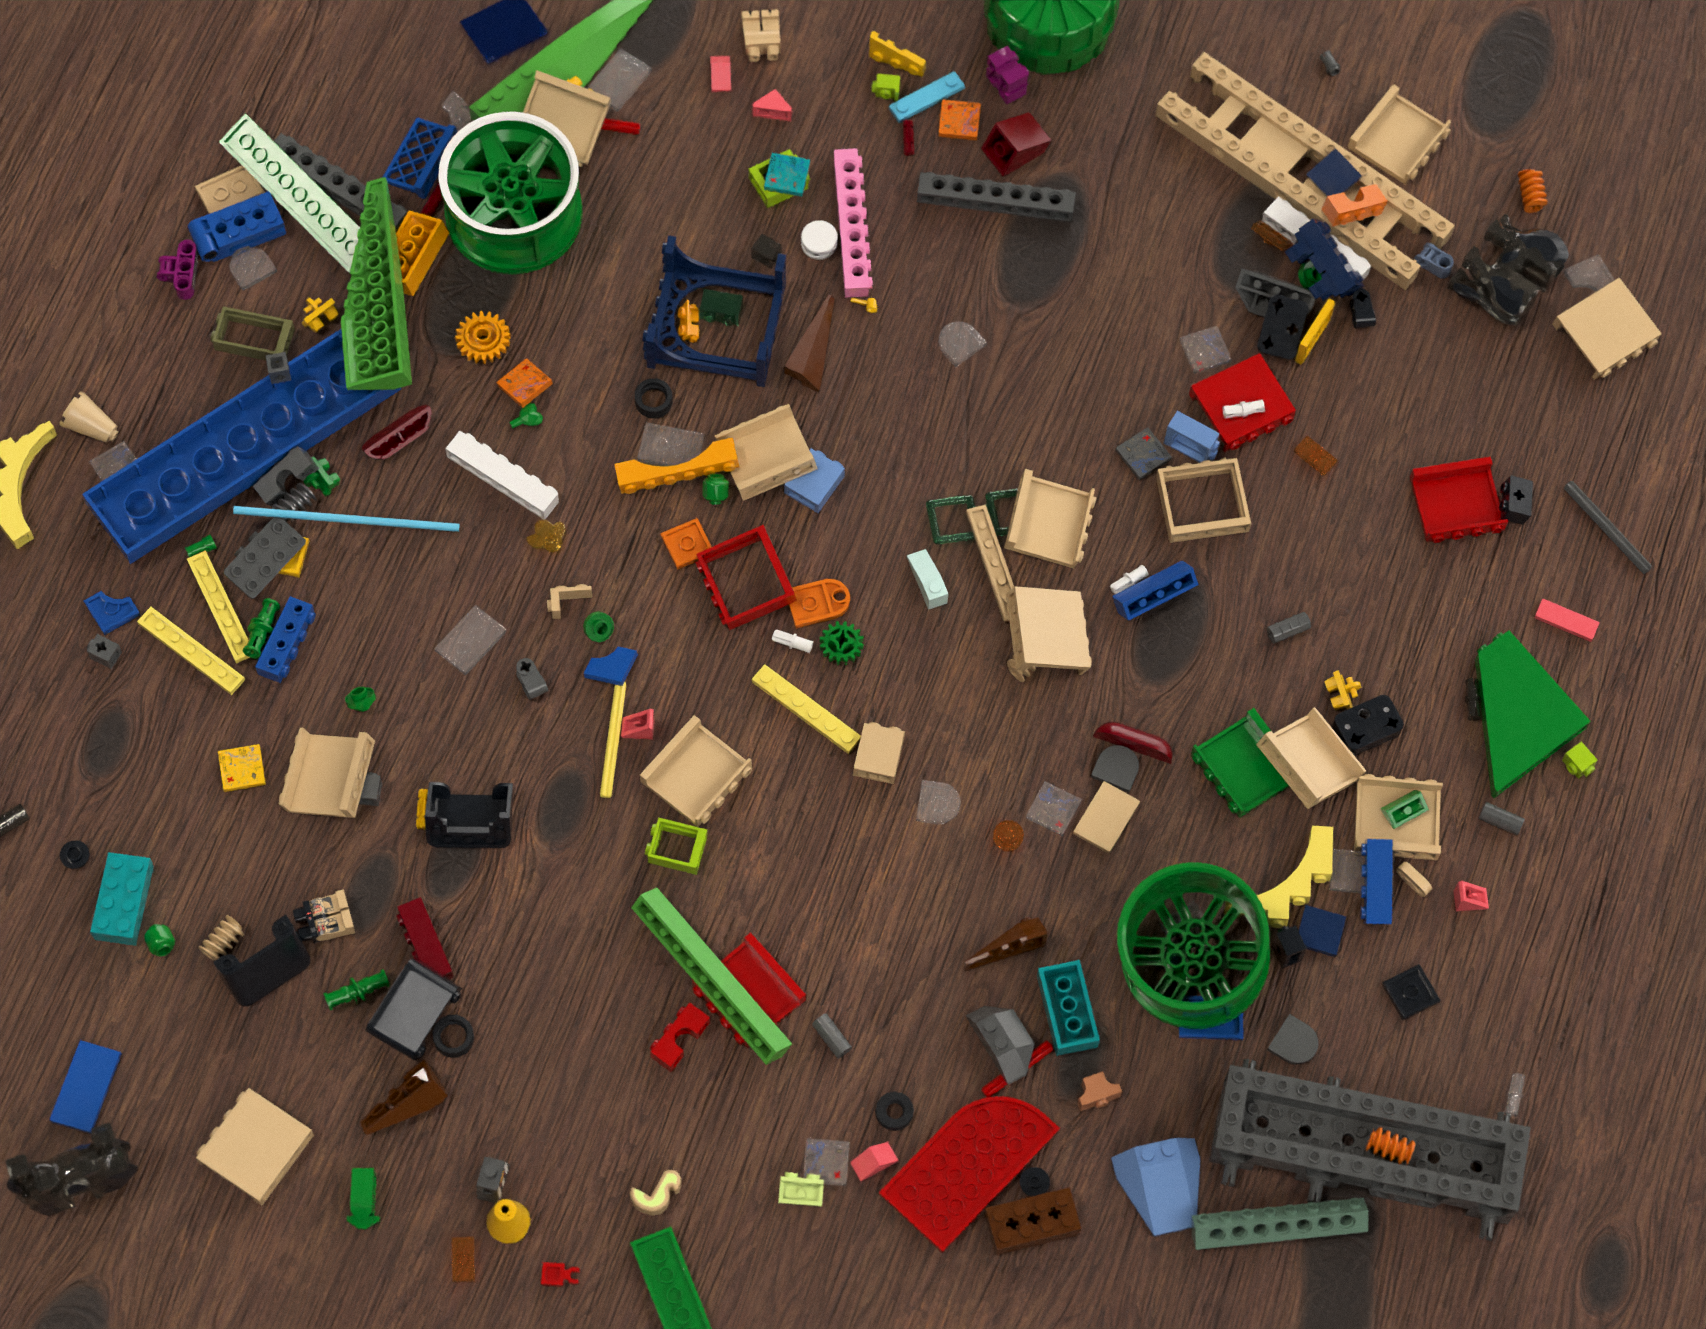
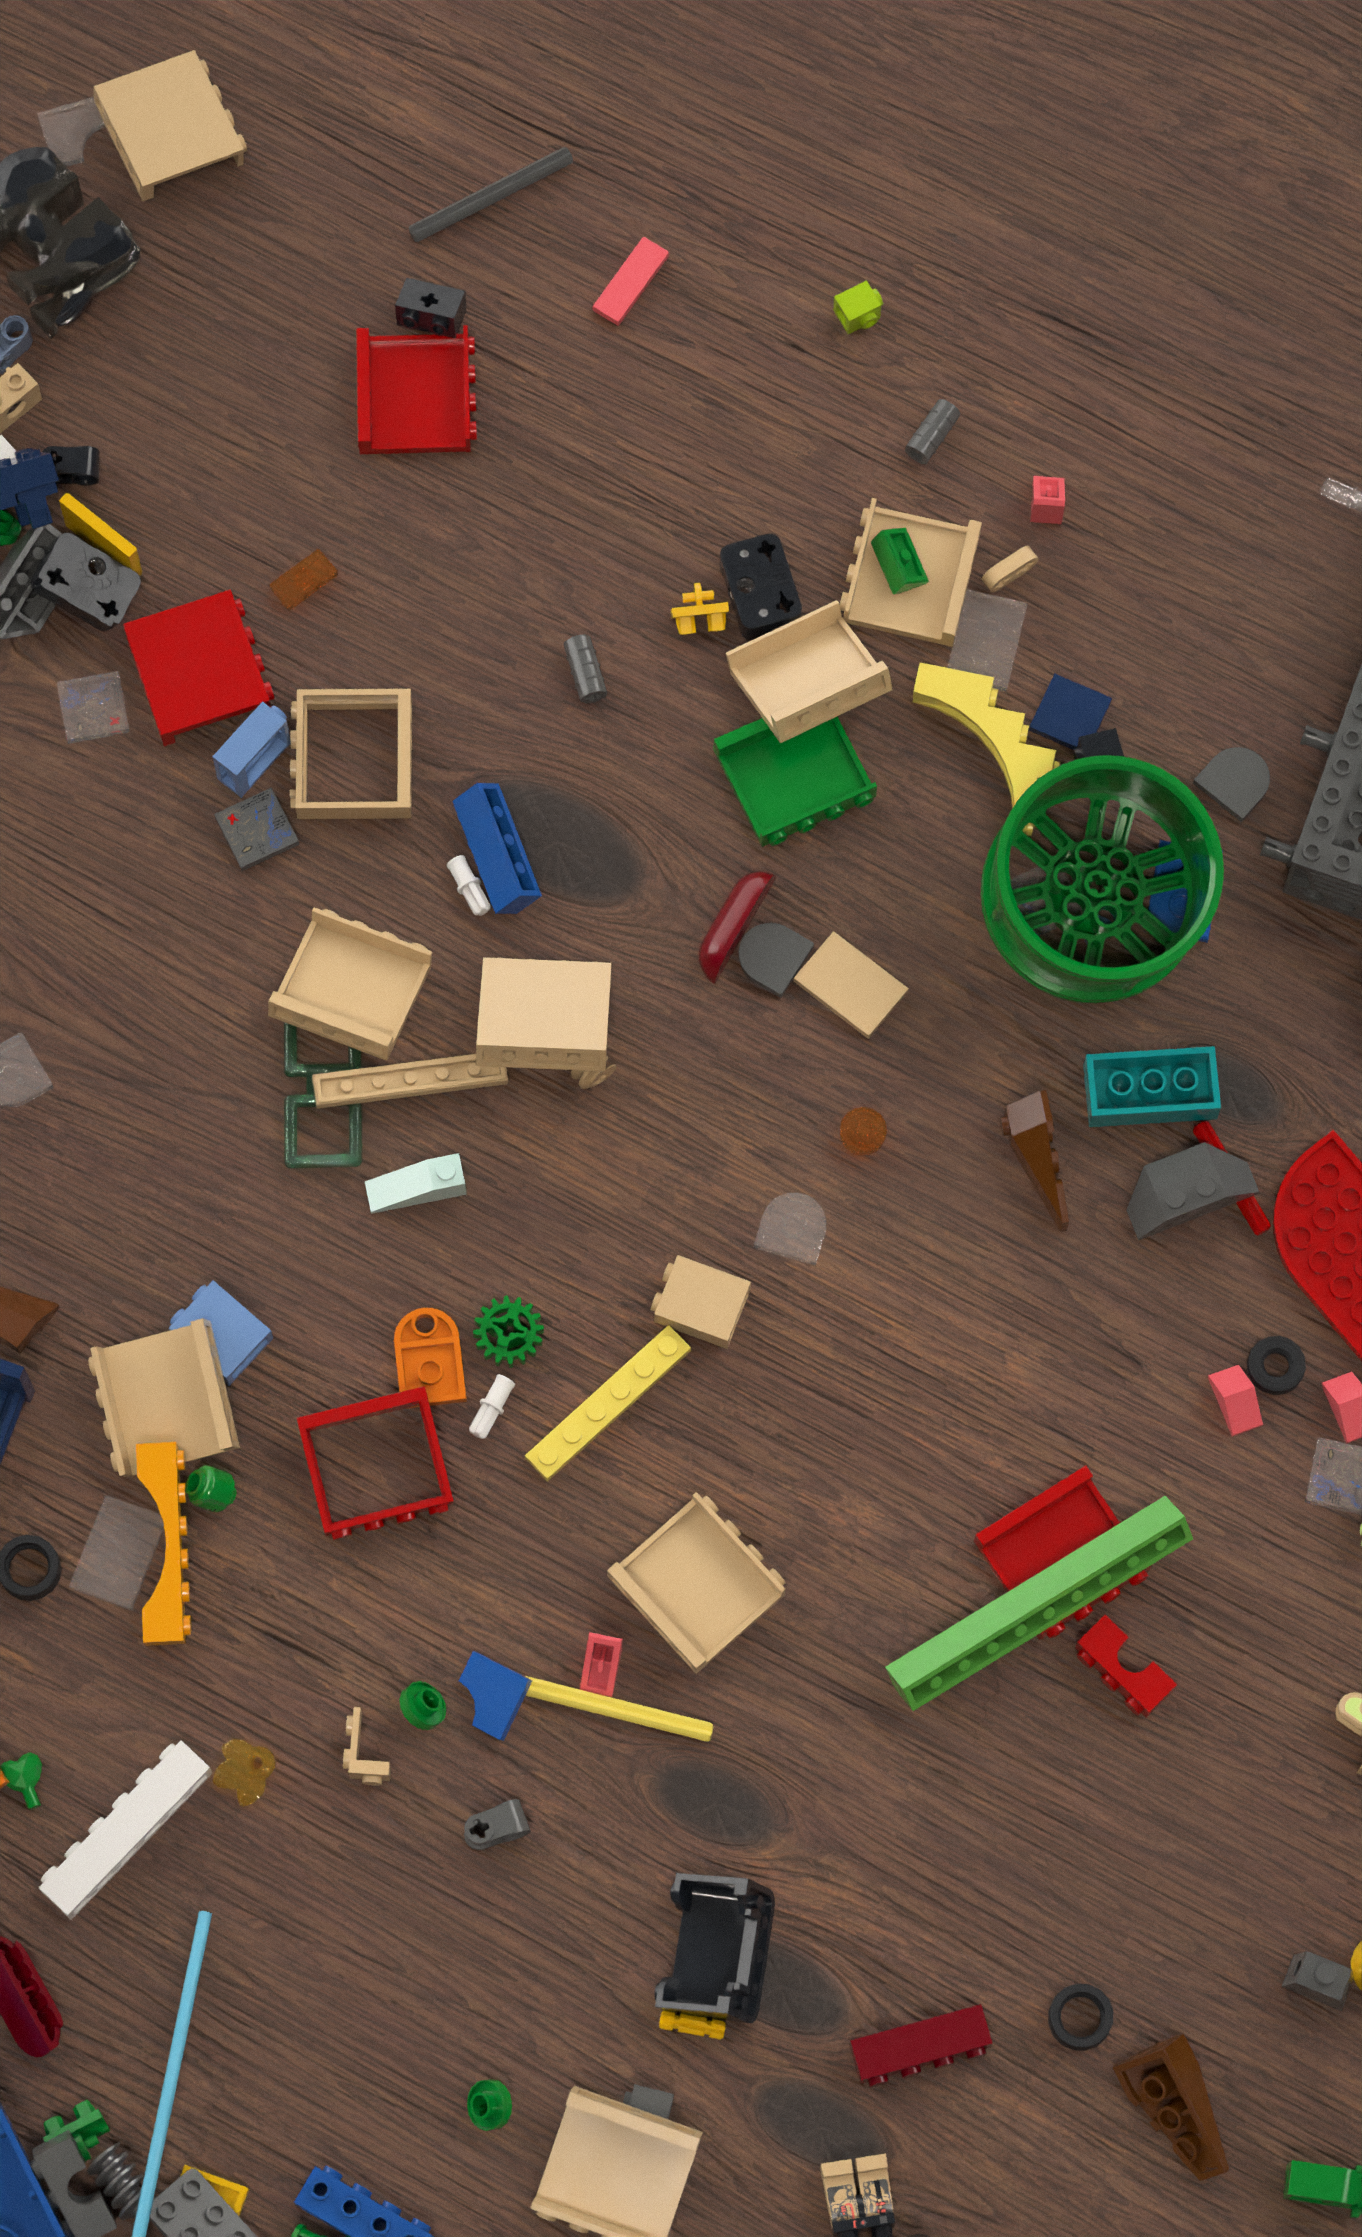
camera: 80 degrees left, 5 degrees up
(356, 989) = (987, 2161): green piece -> none
(412, 1008) = (1040, 2067): windscreen -> none
(470, 640) = (408, 1916): clear tile -> none
(682, 829) = (826, 1600): lime window -> none
(685, 542) = (294, 1549): orange tile -> none
(832, 1036) = (1150, 1439): dark grey axle -> none
(867, 1087) = (1236, 1399): none -> coral slope
(1053, 808) = (825, 1059): clear tile -> none
(1097, 1092) = (1283, 1068): nougat brick -> none
(1243, 409) = (219, 663): white pin -> none
(1377, 881) = (1015, 615): blue brick -> none
(1411, 992) = (1179, 608): black tile -> none
(1472, 699) = (739, 434): clear smoke pin -> none
(1521, 711) = (770, 370): green slope -> none

